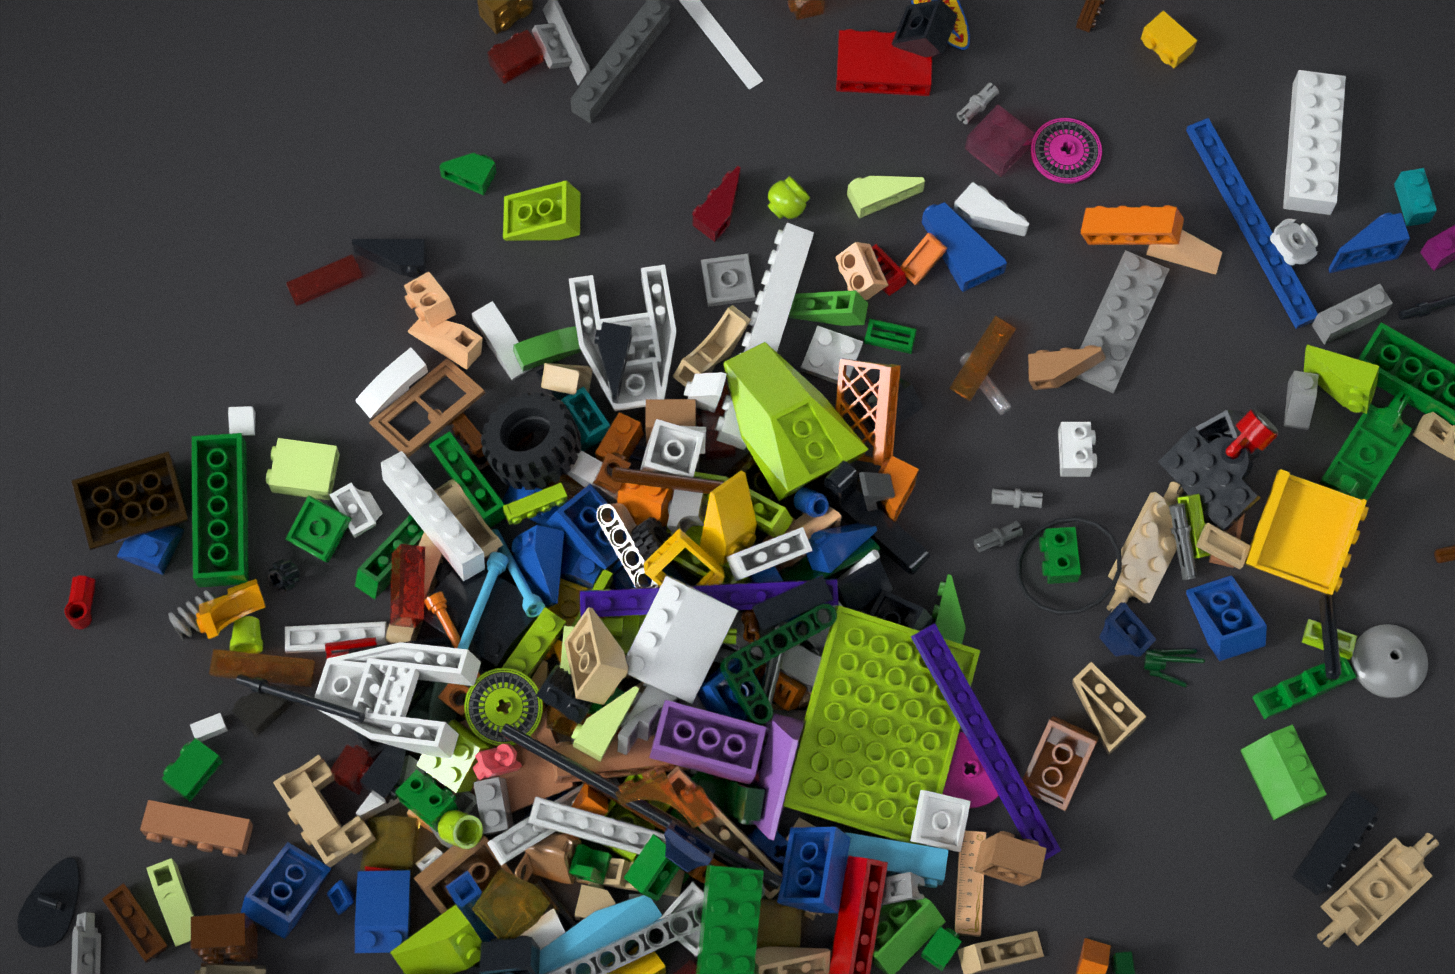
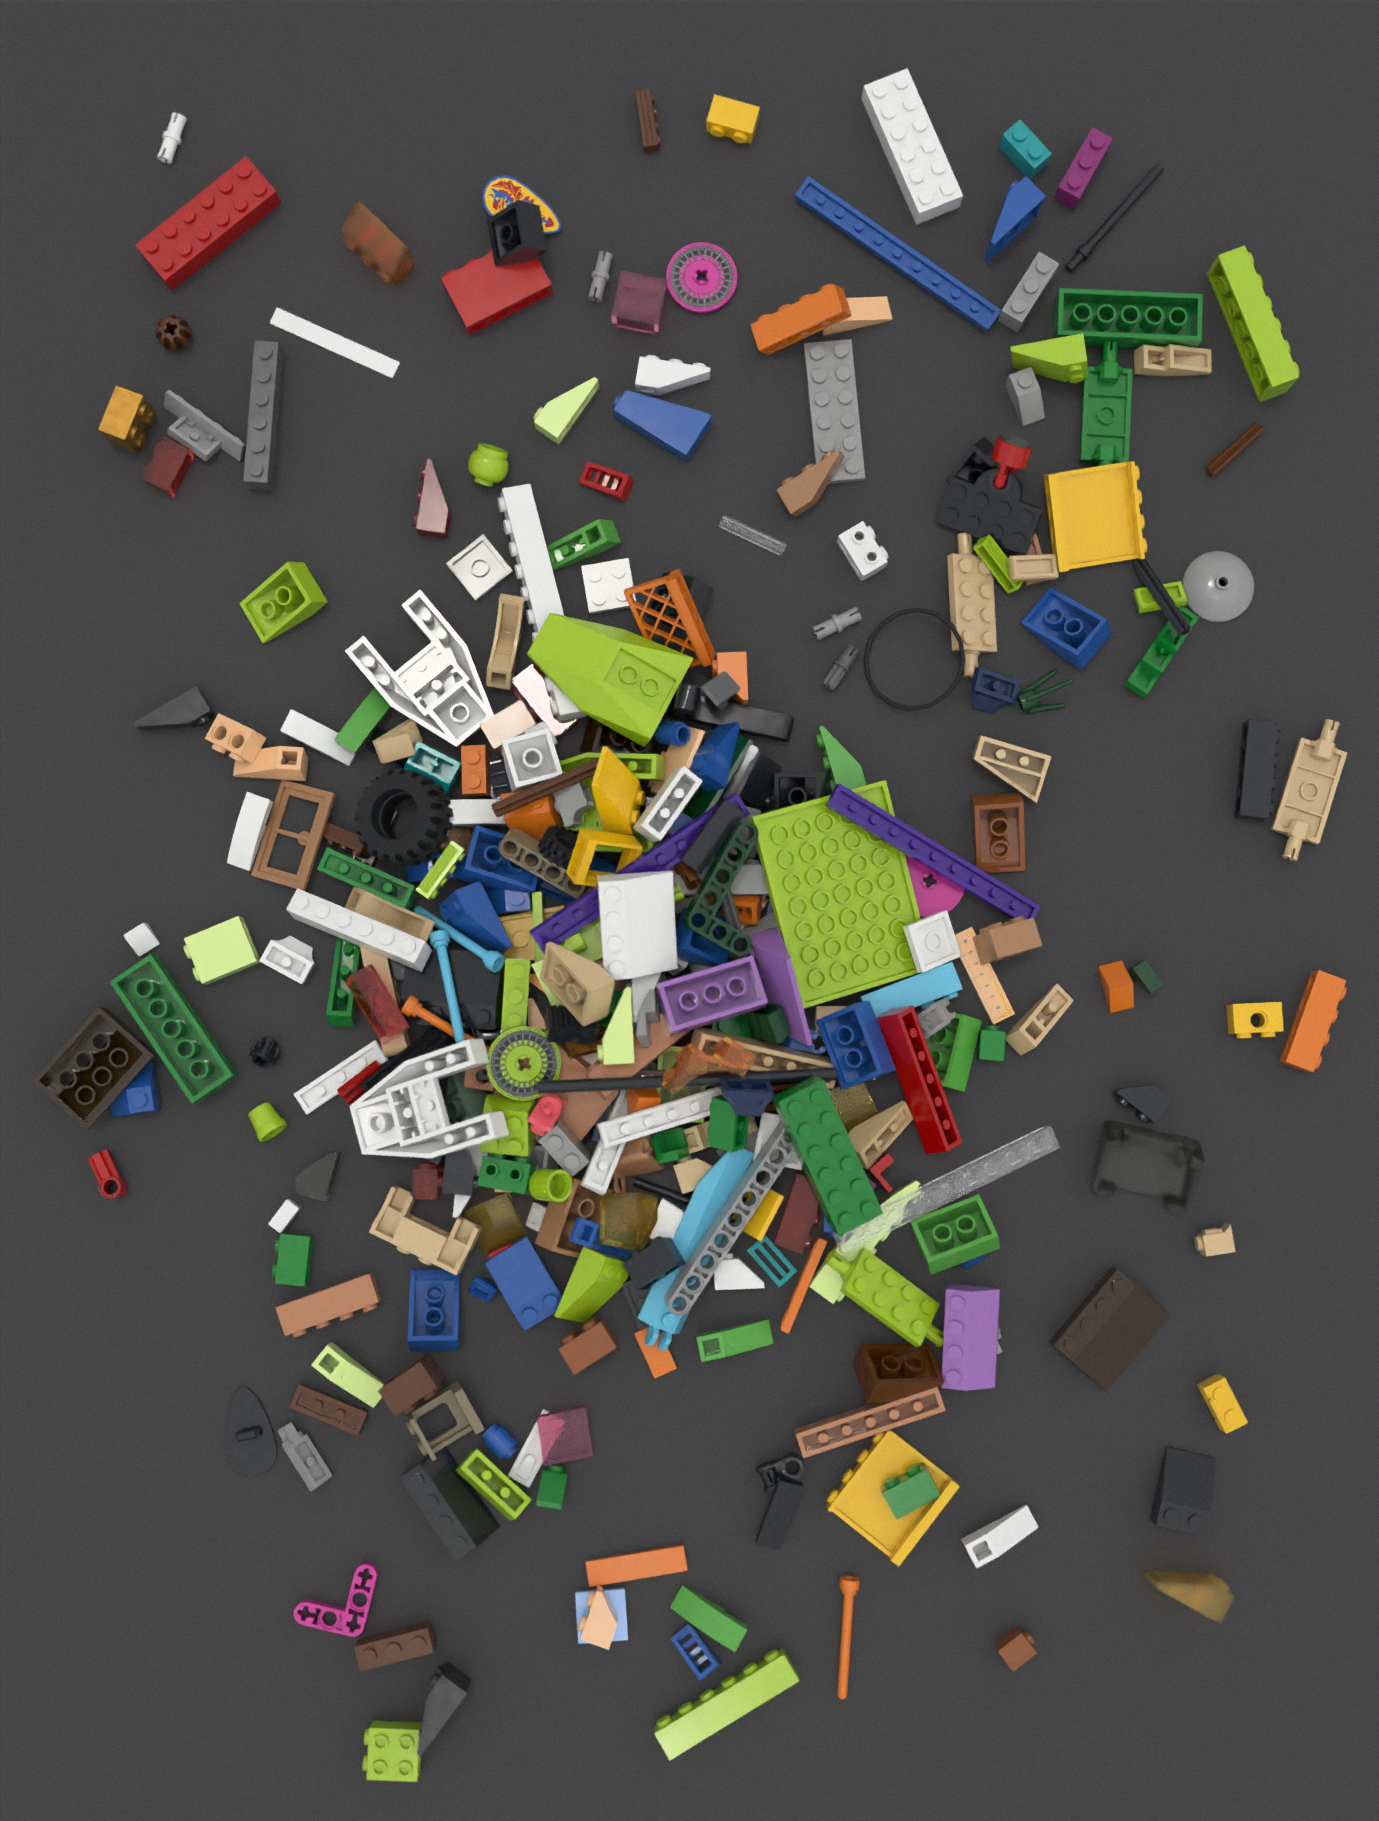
camera: 30 degrees left, 15 degrees up
(187, 619) = (213, 1129): light grey piece -> none
(226, 609) = (234, 1118): light orange arch -> none
(262, 686) = (307, 1159): black bar -> none
(269, 667) = (296, 1140): clear orange plate -> none
(318, 528) = (268, 995): green tile -> none
(324, 280) = (131, 771): clear red tile -> none
(470, 171) = (196, 598): green slope -> none
(603, 479) = (483, 814): dark orange brick -> none
(613, 350) = (424, 695): black slope -> none
(706, 390) = (524, 685): white slope -> none
(861, 270) = (593, 492): light nougat brick -> none
(890, 336) = (647, 548): green tile -> none
(923, 258) = (636, 452): orange tile -> none
(982, 358) = (739, 515): clear orange plate -> none
(1060, 554) = (901, 653): green brick -> none
(1183, 542) = (992, 575): dark grey pin -> none
(1283, 772) = (1183, 735): bright green slope -> none
(1284, 239) = (941, 261): white plate -> none

